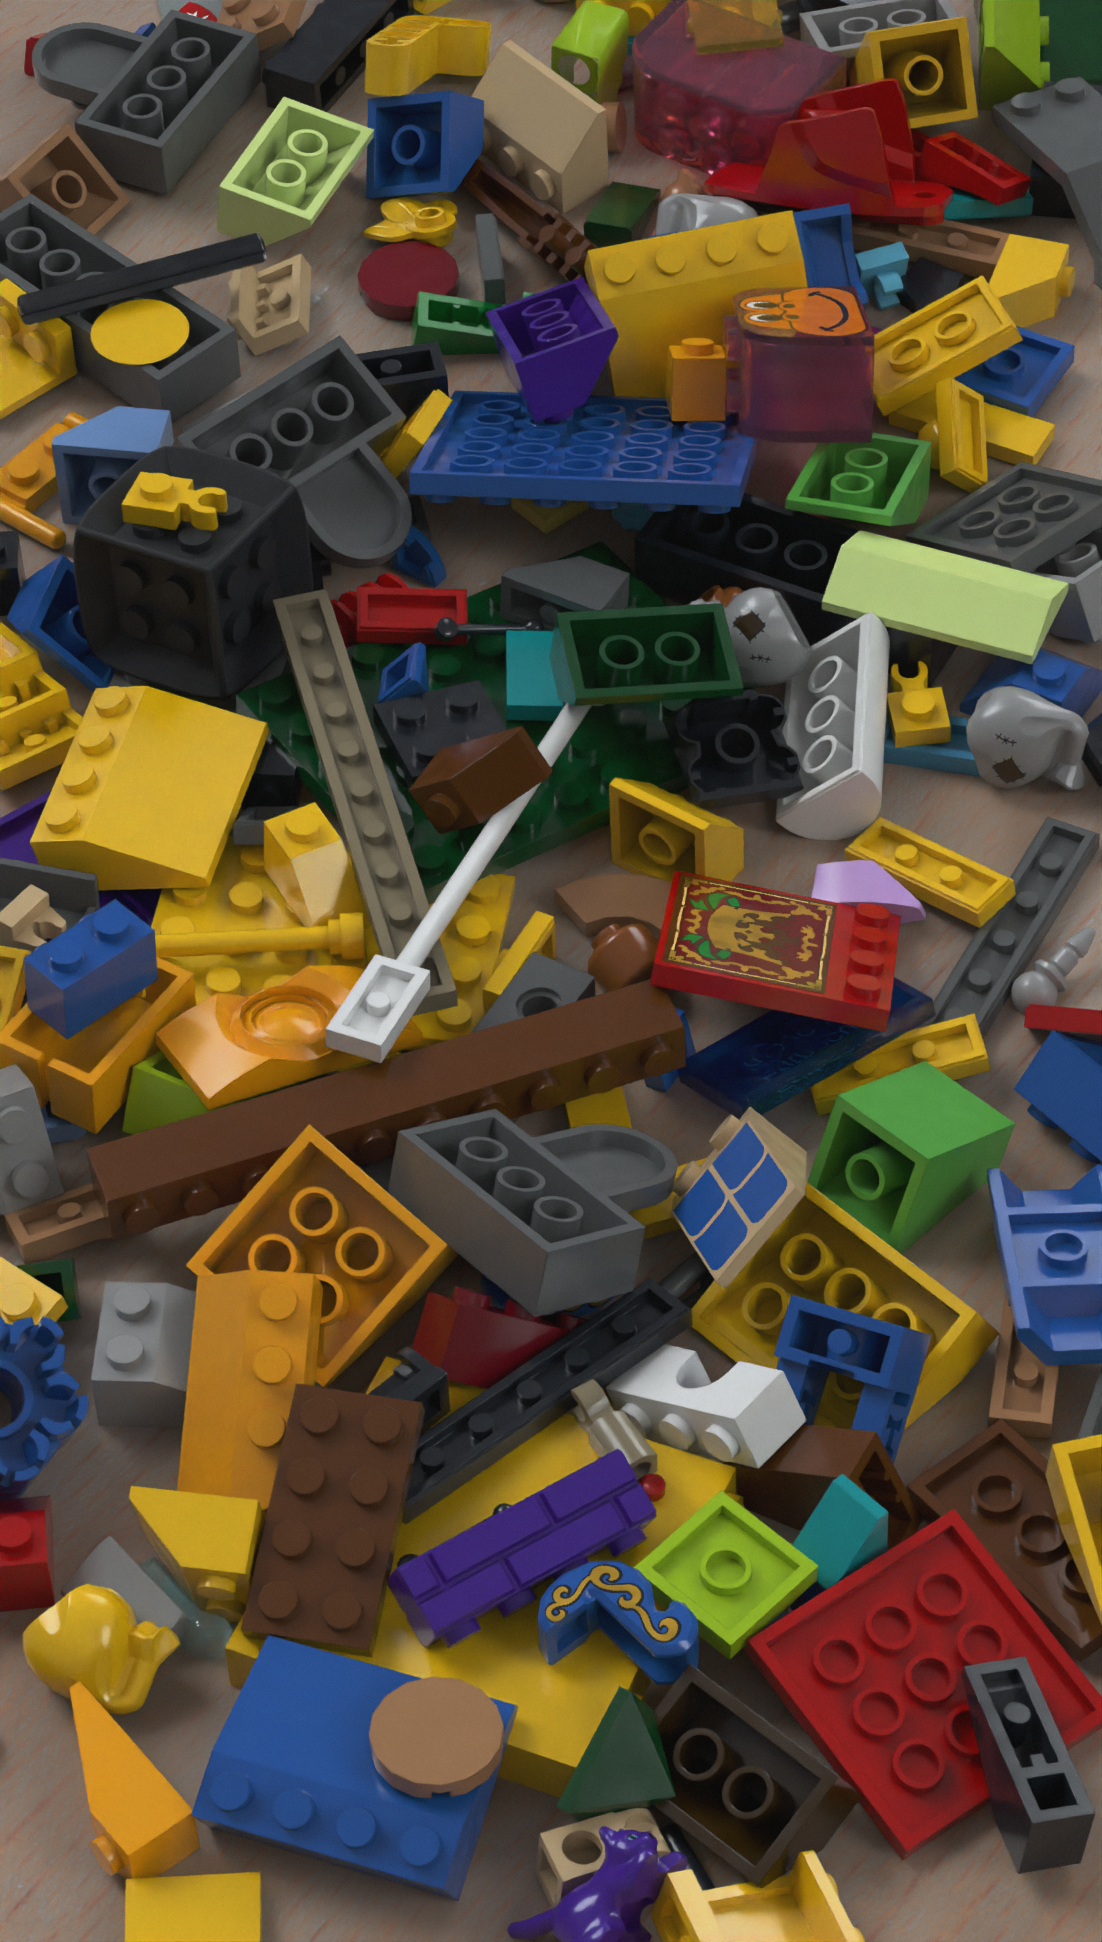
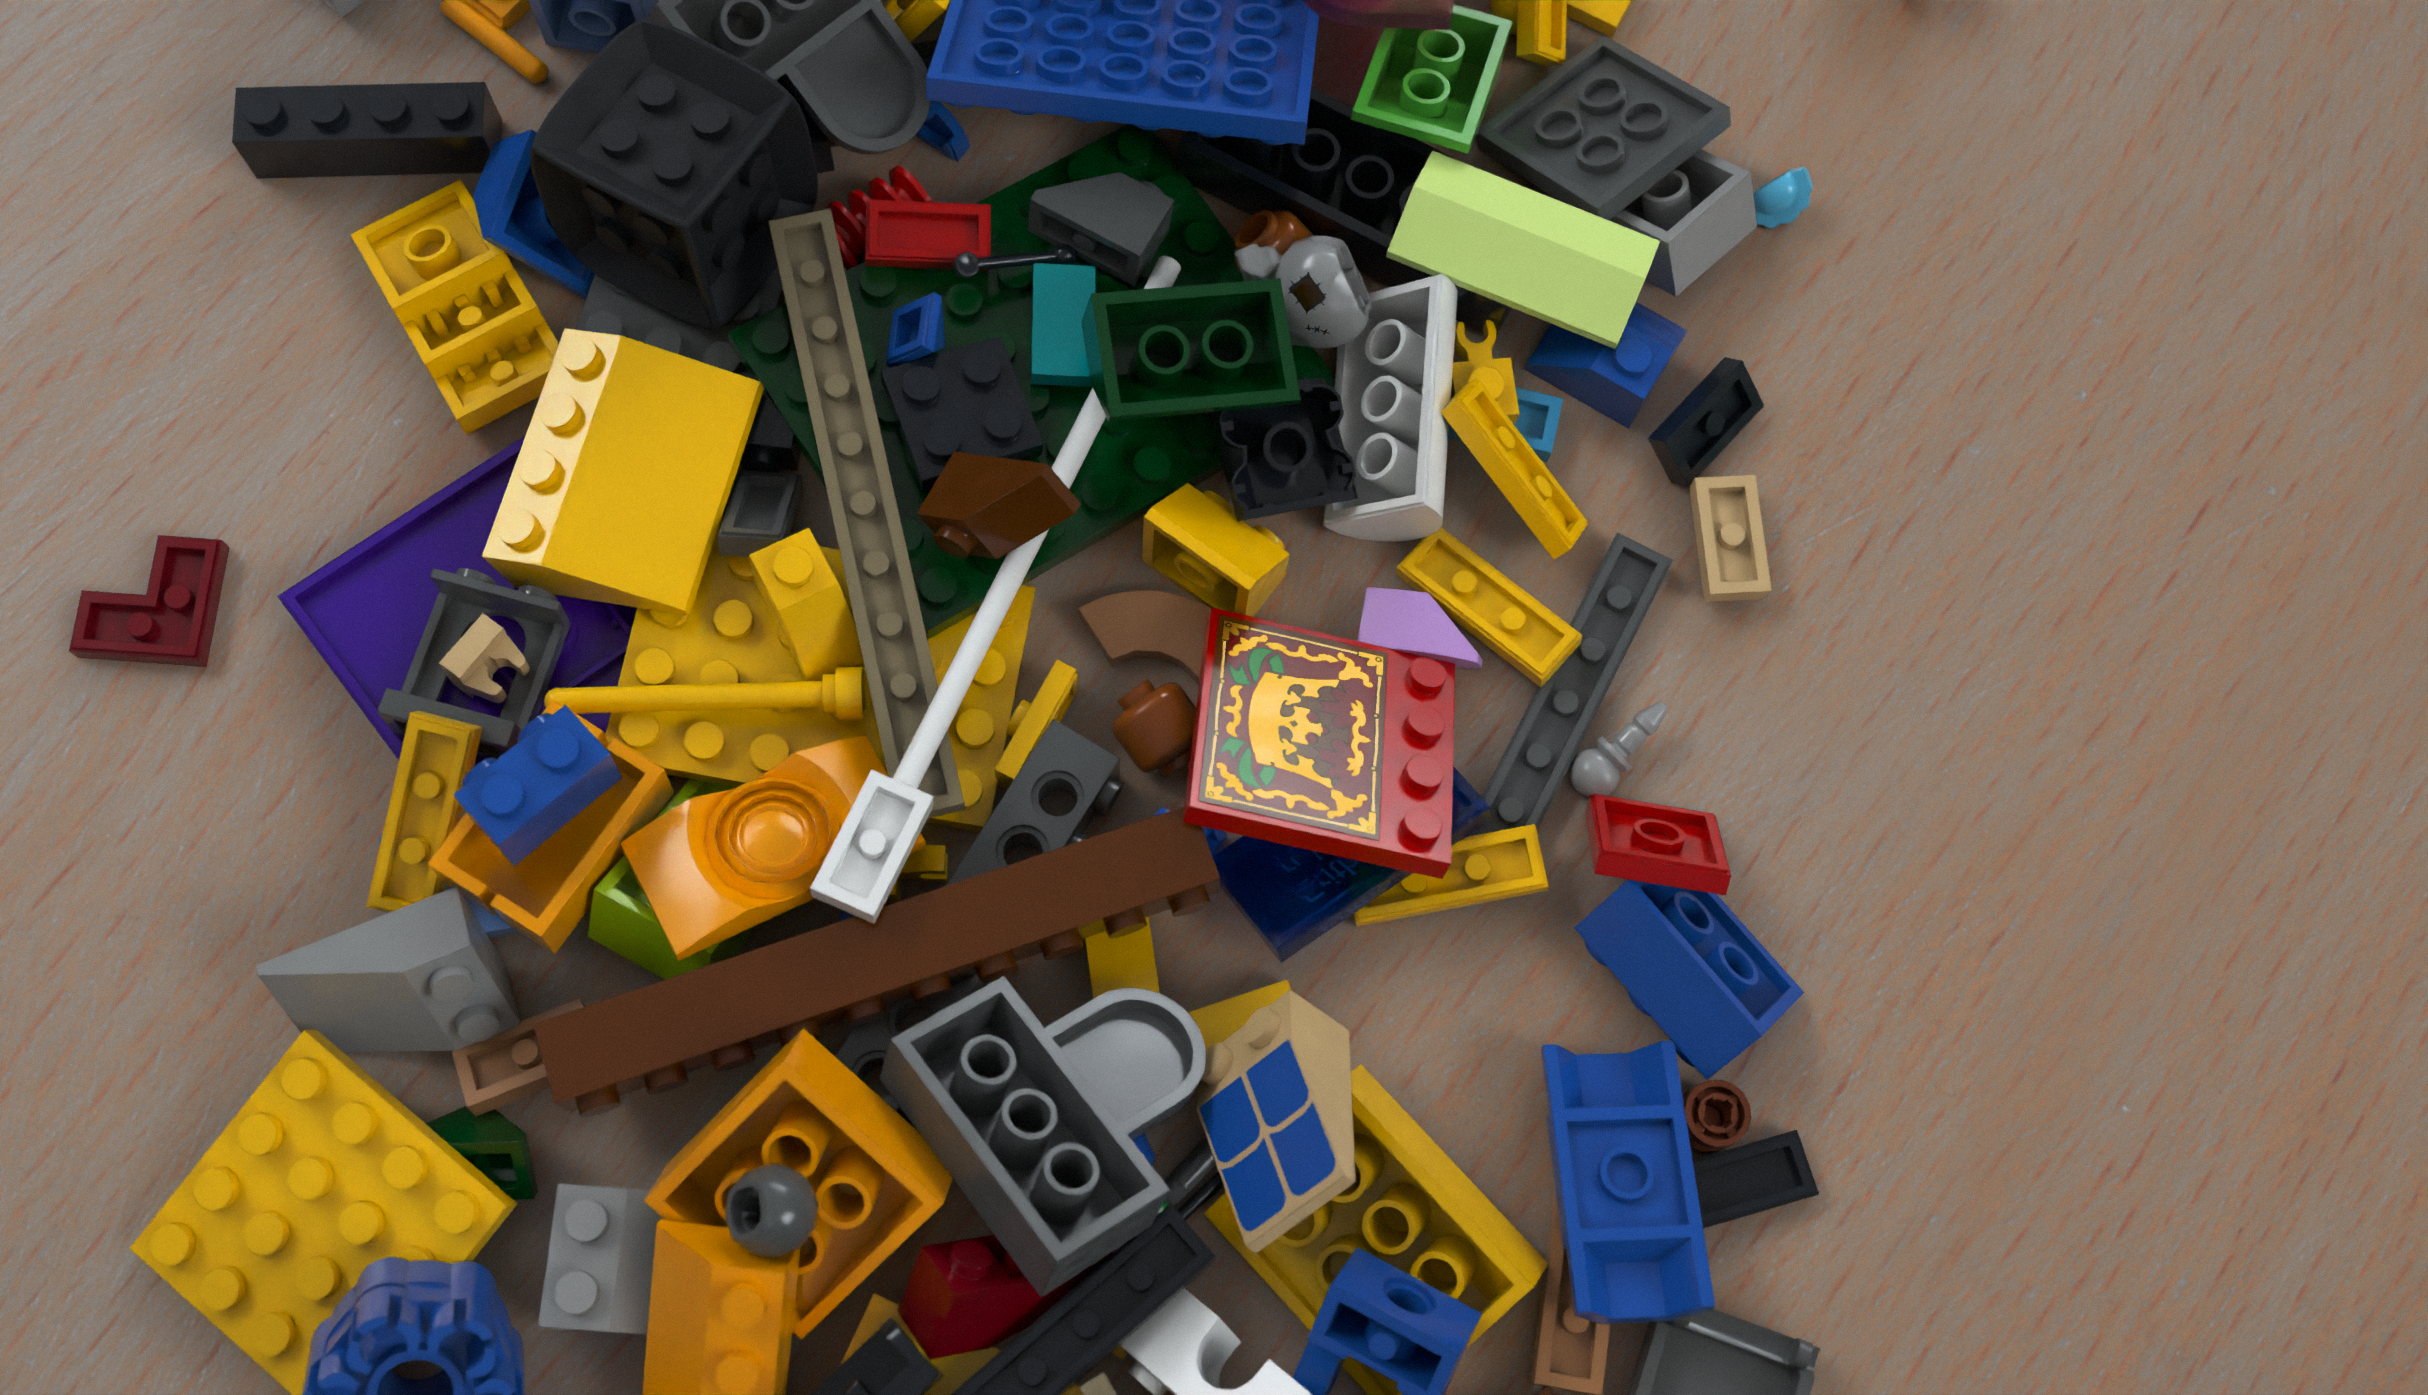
camera: 10 degrees left, 25 degrees up
(168, 500) = (640, 111): yellow plate -> none
(300, 1238) = (771, 1210): none -> dark grey piece
(907, 1152) = (1456, 1011): bright green slope -> none
(947, 761) = (1515, 468): none -> yellow tile
(1026, 737) = (1599, 435): light grey piece -> none

